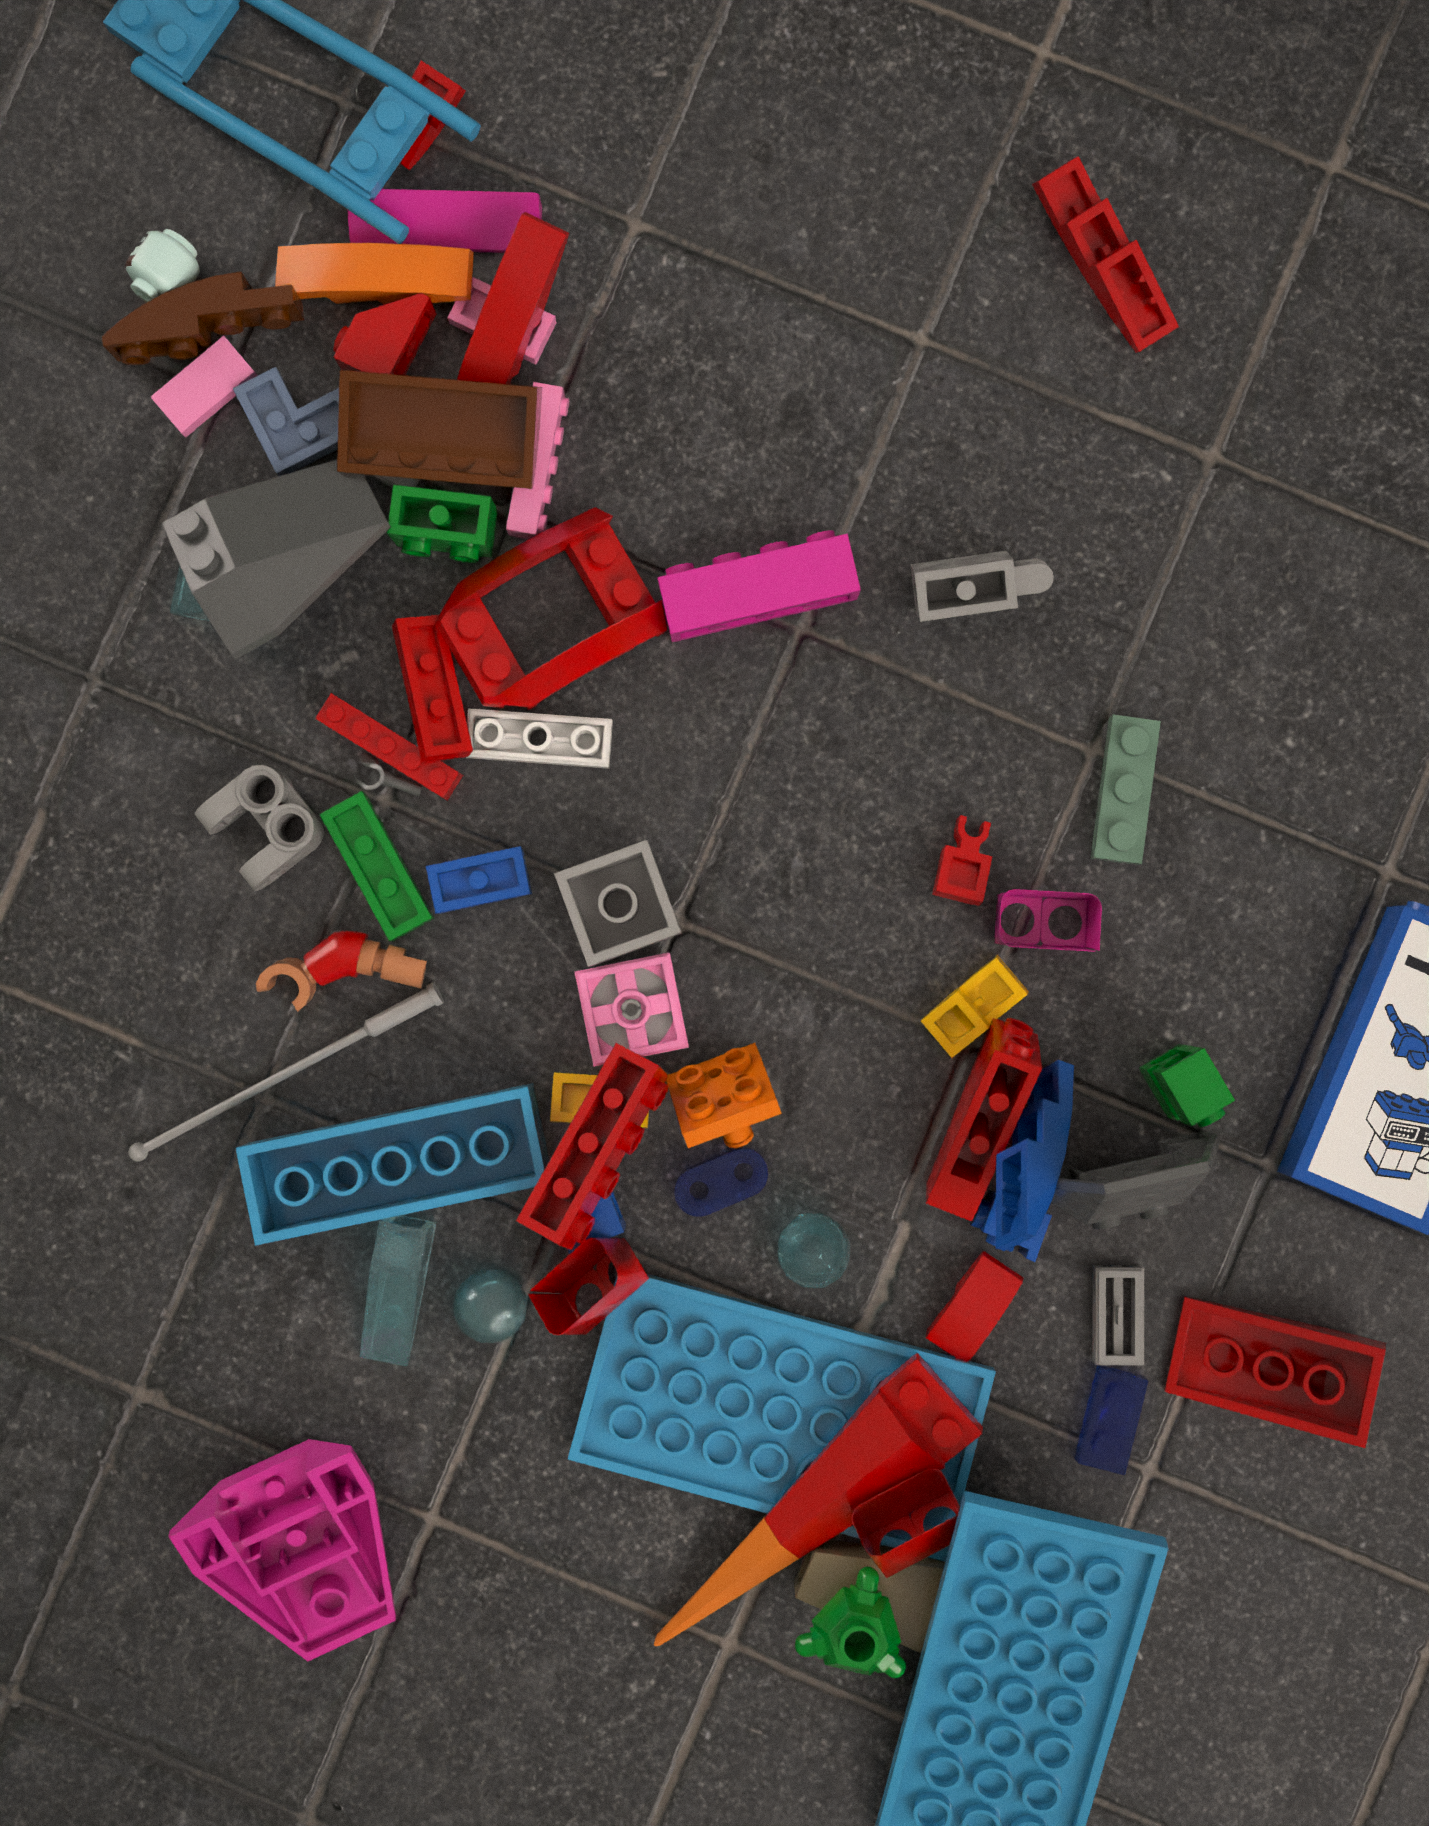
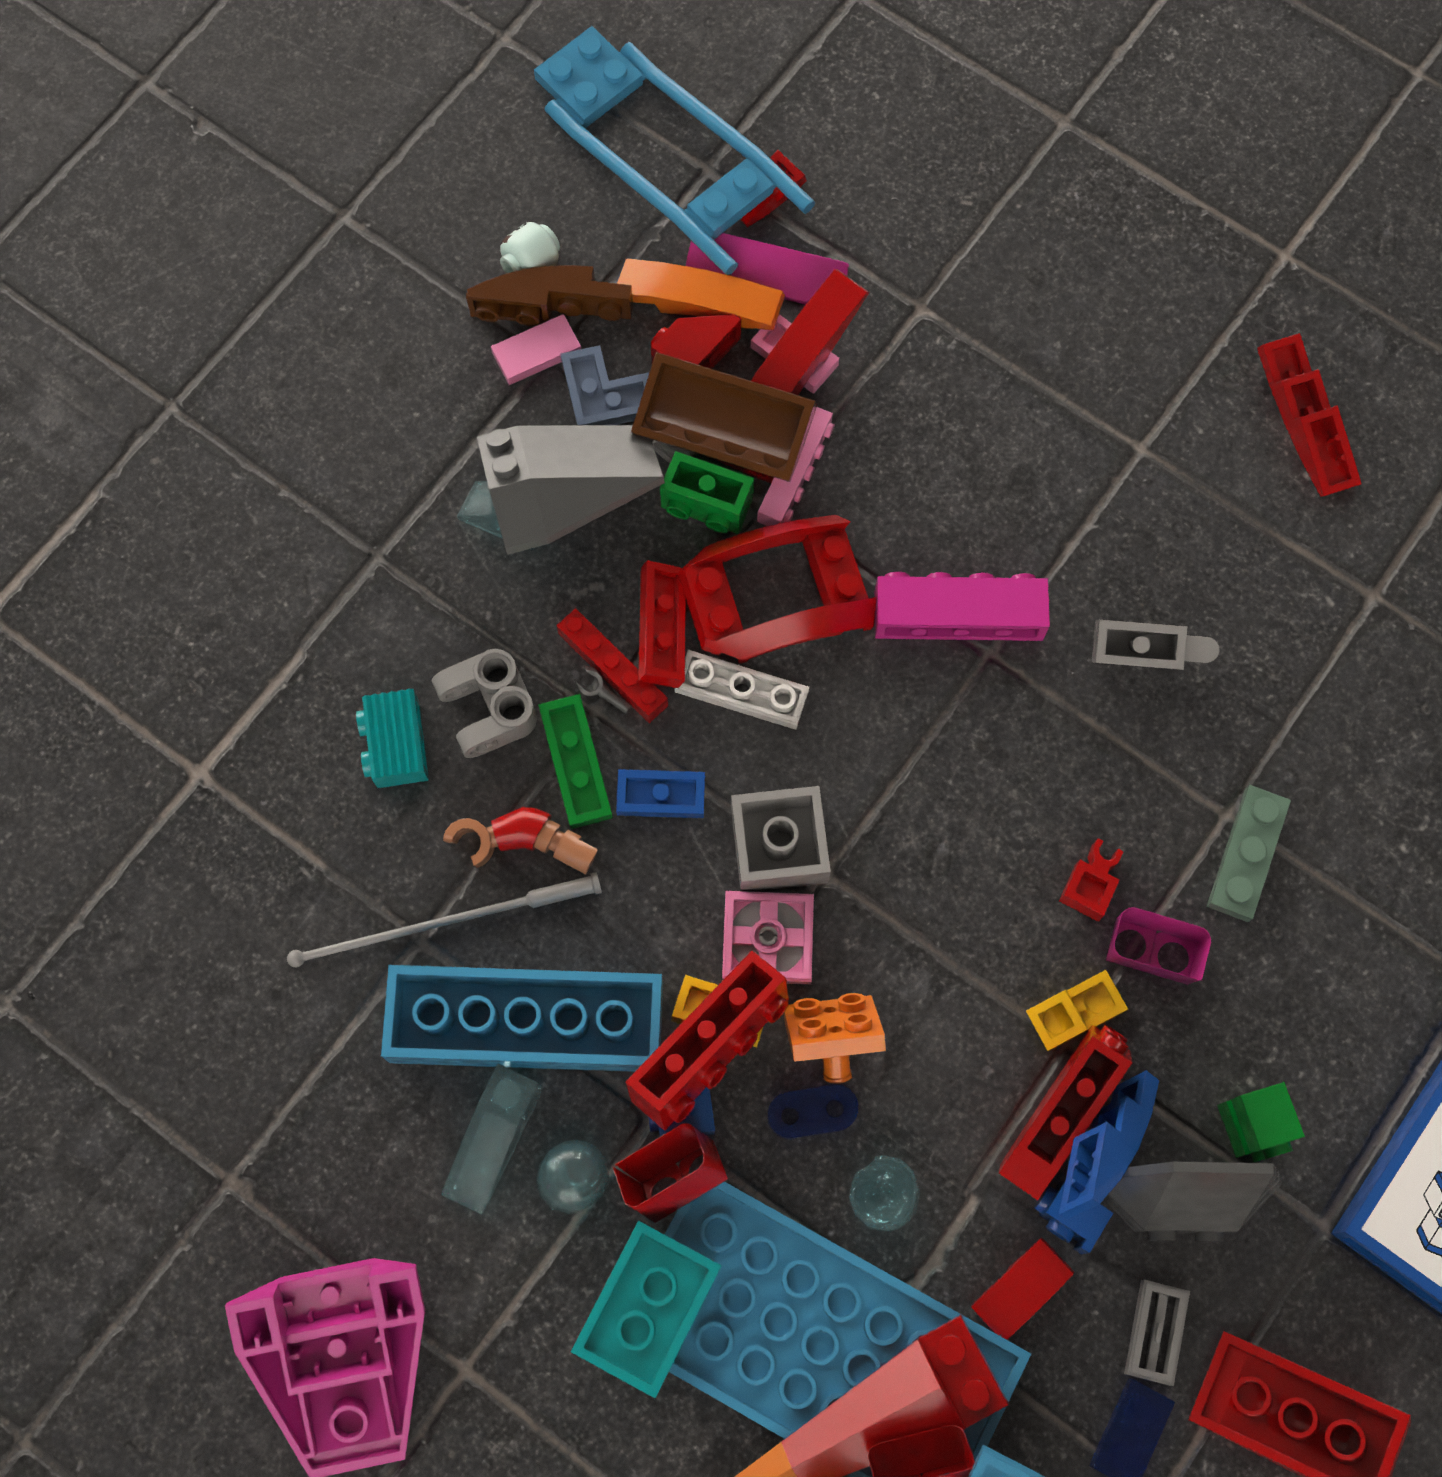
camera: 10 degrees right, 15 degrees down
(171, 890) = (393, 738): none -> teal brick
(597, 1427) = (646, 1309): none -> teal plate

